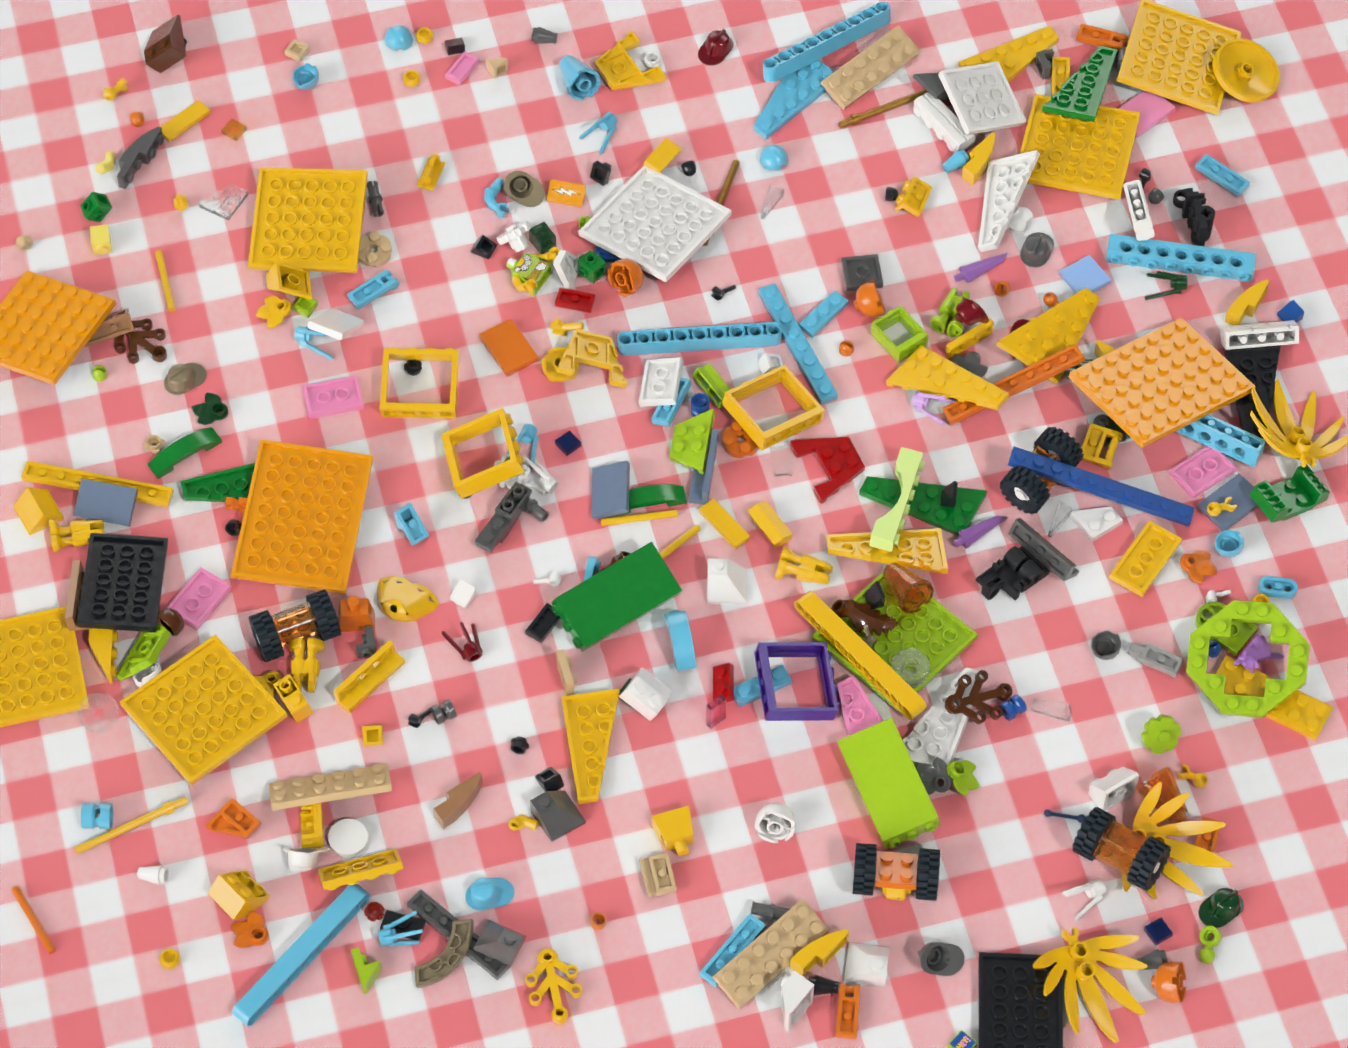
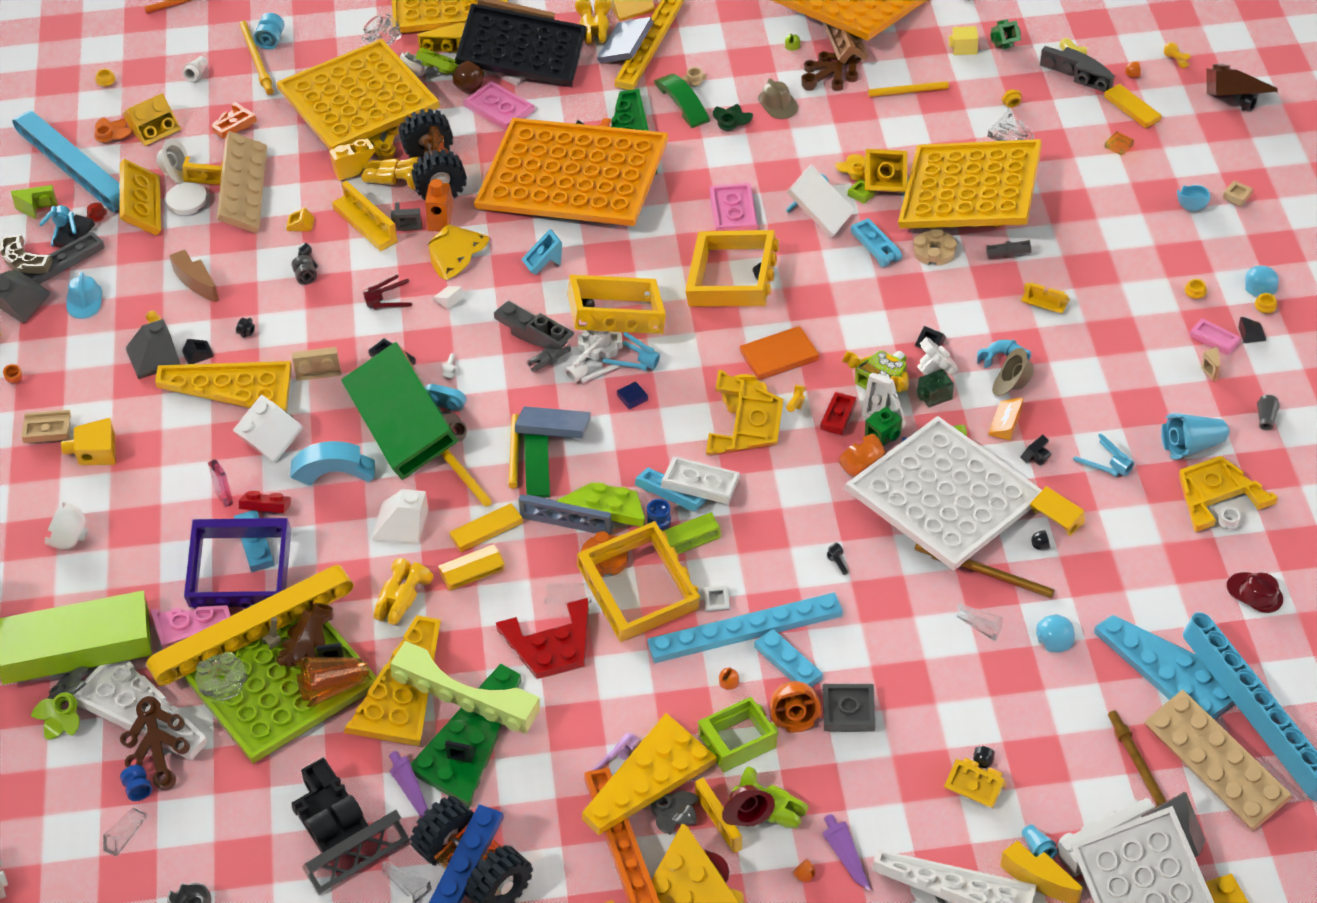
camera: 100 degrees right, 10 degrees down
(688, 340) = (761, 526): medium azure beam -> none

